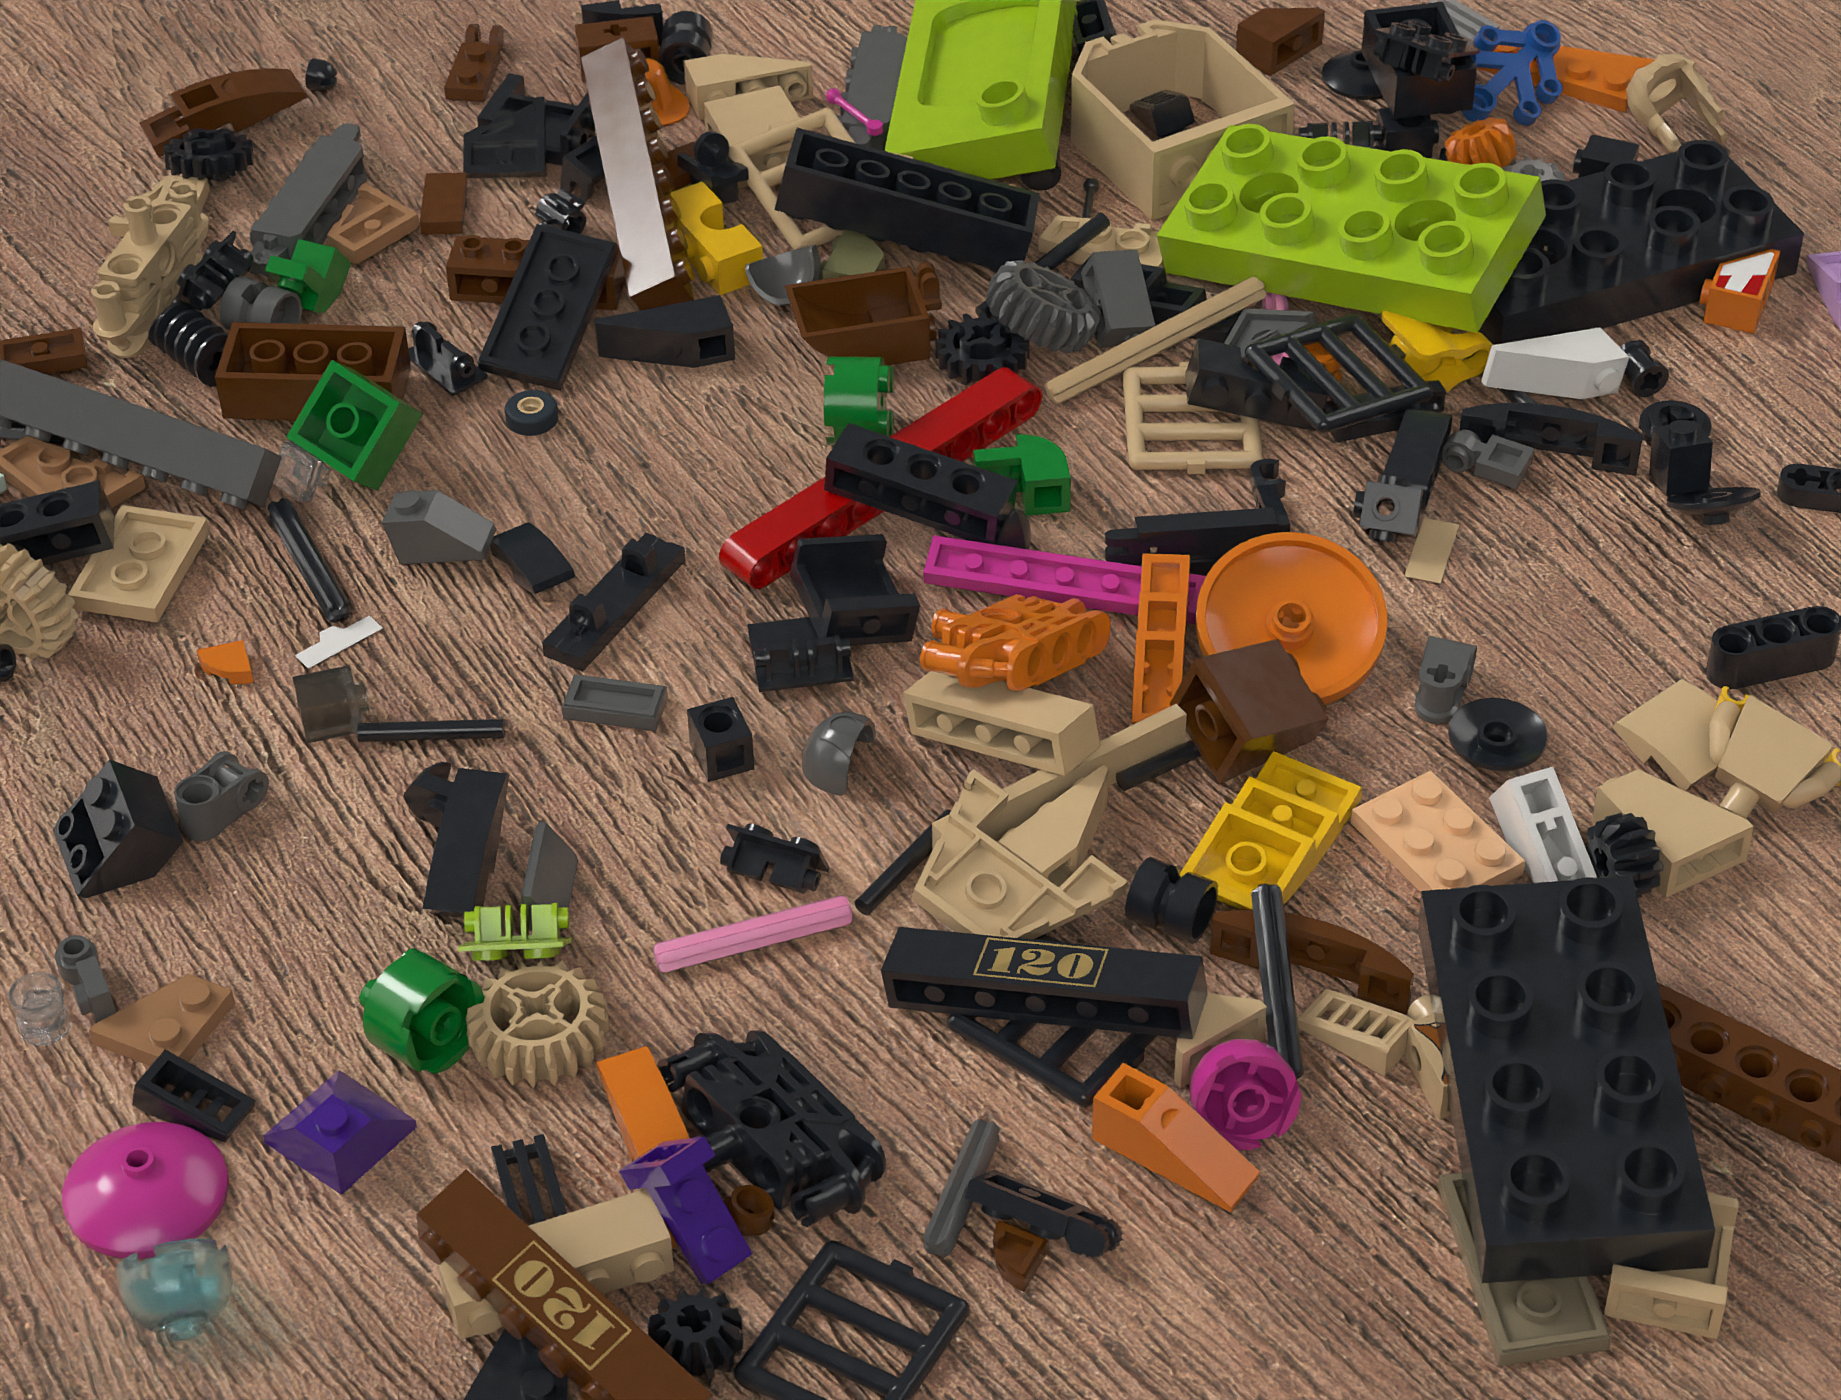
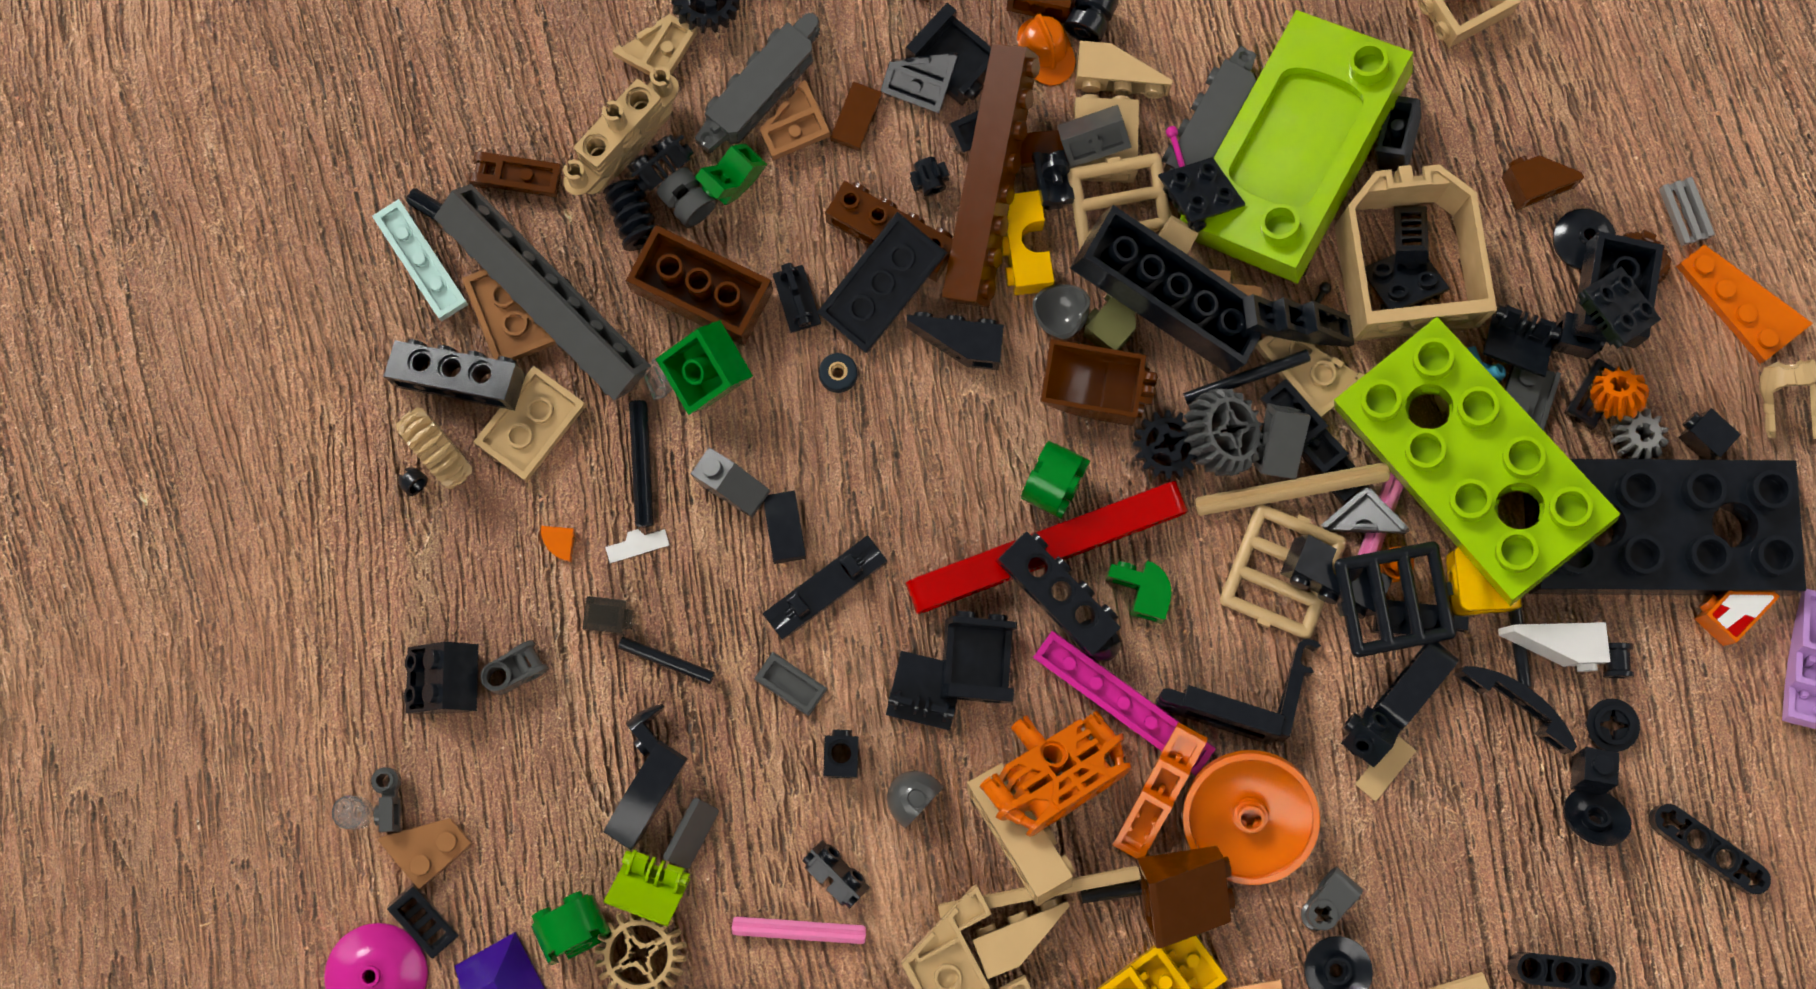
camera: 20 degrees right, 35 degrees up
(747, 112) = (1094, 136): none -> dark grey hinge
(890, 122) = (1200, 192): none -> black hinge
(897, 871) = (918, 908): black bar -> none
(1081, 194) = (1298, 322): none -> black slope
(1495, 461) = (1471, 711): dark grey plate -> none
(1537, 41) = (1697, 301): blue plant -> none

